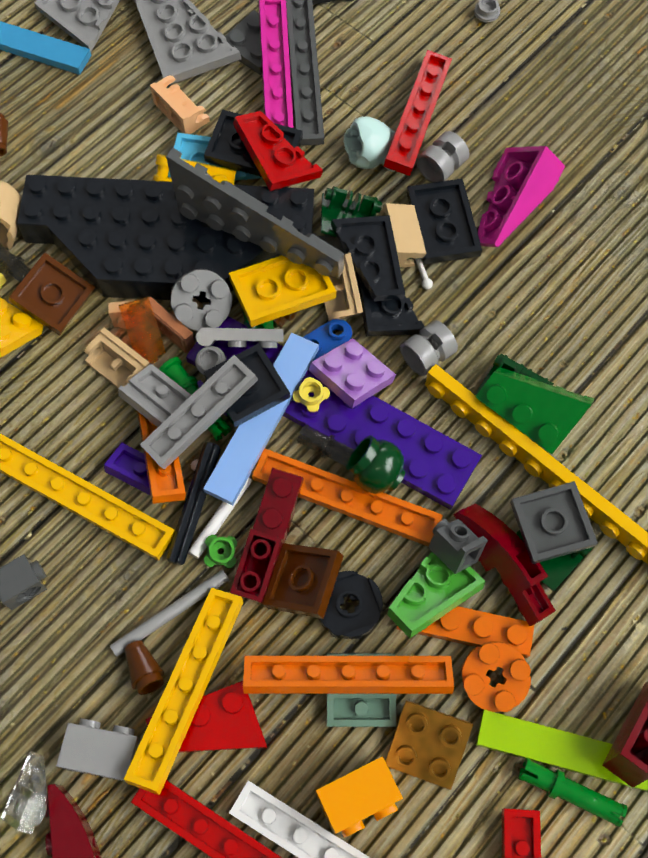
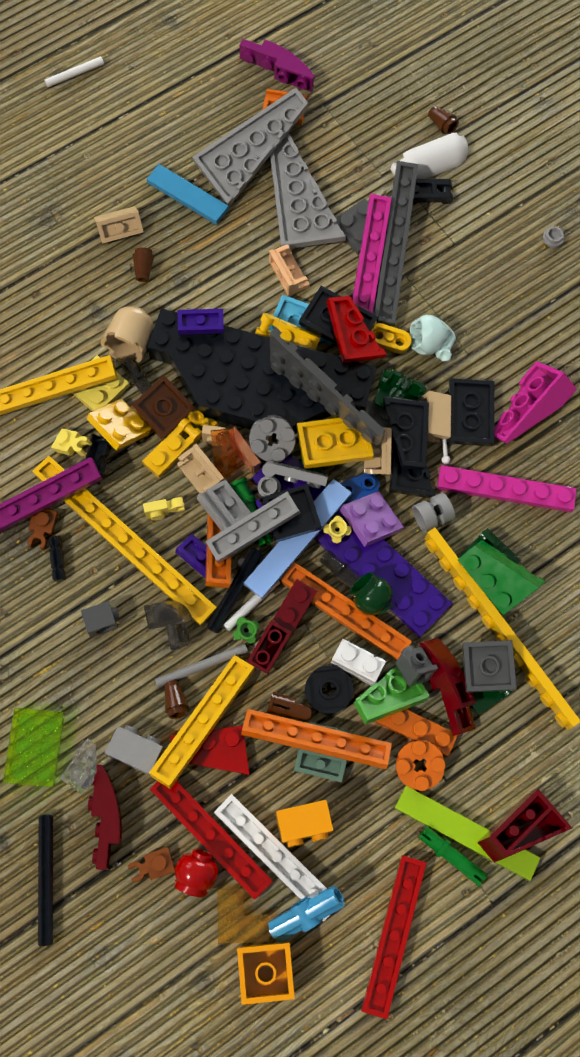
camera: 10 degrees right, 5 degrees up
(69, 349) = (171, 448): none -> yellow plate
(74, 419) = (159, 509): none -> light yellow plate
(78, 176) = (200, 321): none -> dark purple plate
(100, 298) = (198, 418): none -> yellow piece
(115, 554) = (173, 616): none -> clear smoke brick
(303, 580) = (300, 665): reddish brown plate -> none
(312, 640) = (296, 710): none -> reddish brown hinge
(324, 154) = (390, 336): none -> yellow plate
(379, 558) = (357, 662): none -> white brick
(417, 113) = (473, 318): plate -> none
(428, 744) = (361, 800): pearl gold hinge -> none
(443, 157) = (483, 360): light grey wheel -> none
(511, 302) = (506, 488): none -> dark pink plate

